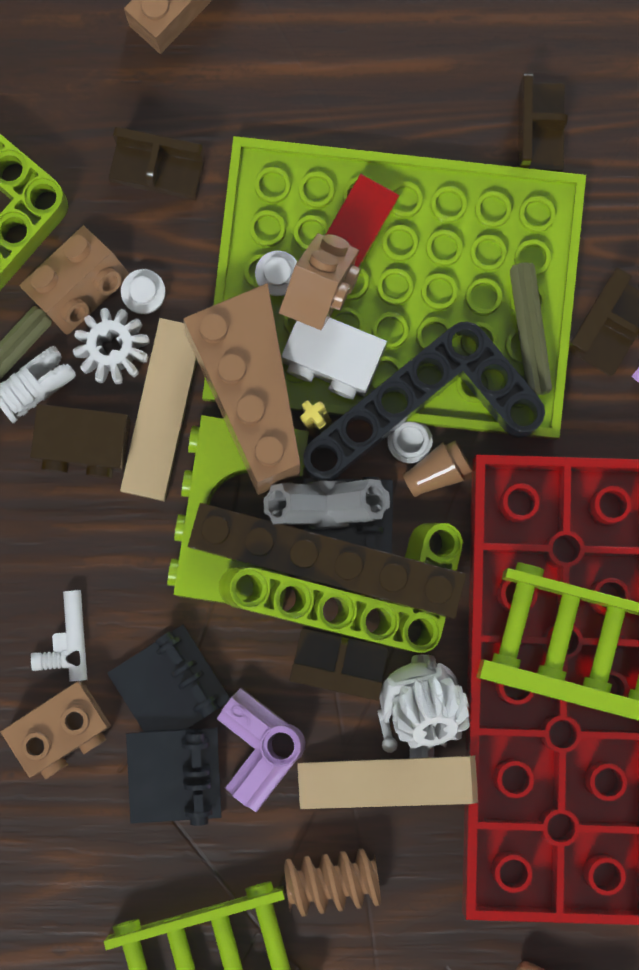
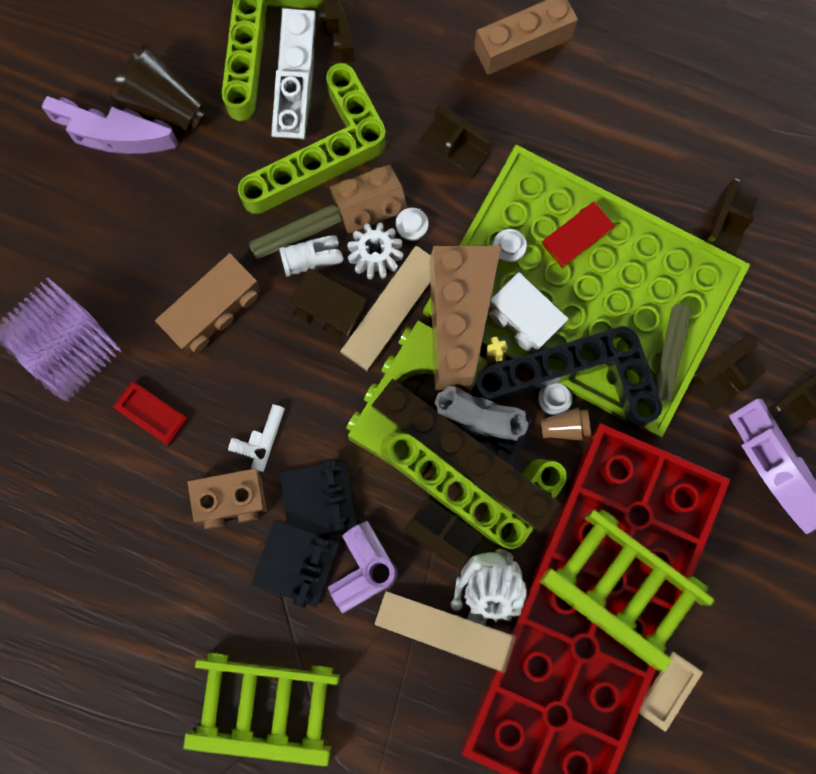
camera: 20 degrees right, 5 degrees down
(321, 281) = (538, 259): medium nougat brick -> none
(332, 882) = (376, 687): medium nougat piece -> none

